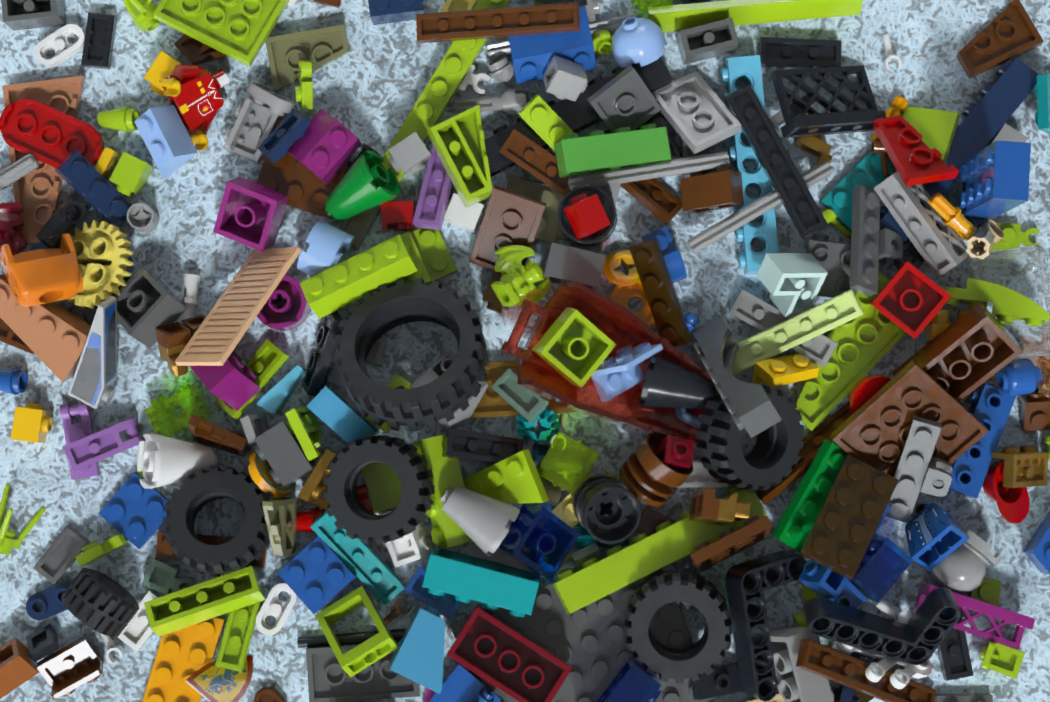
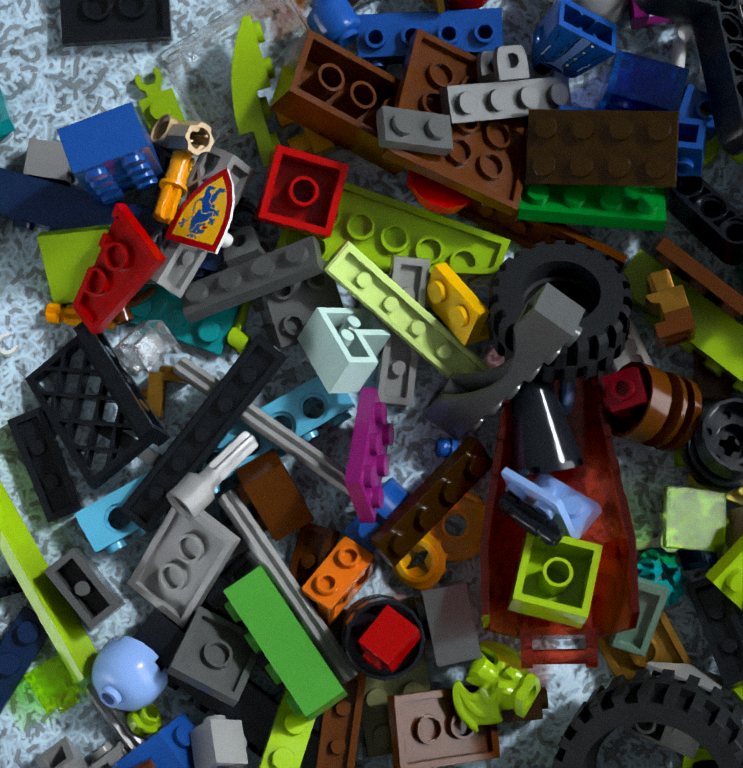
camera: 125 degrees left, 0 degrees up
(621, 346) = (530, 519): none -> black axle
(636, 208) = (339, 578): none -> orange bracket
(711, 262) = (368, 455): none -> magenta plate
(740, 137) = (196, 490): none -> light grey piece
(849, 151) = (146, 347): none -> clear brick
(920, 390) = (414, 130): none -> dark grey plate
(923, 226) = (206, 215): none -> shield

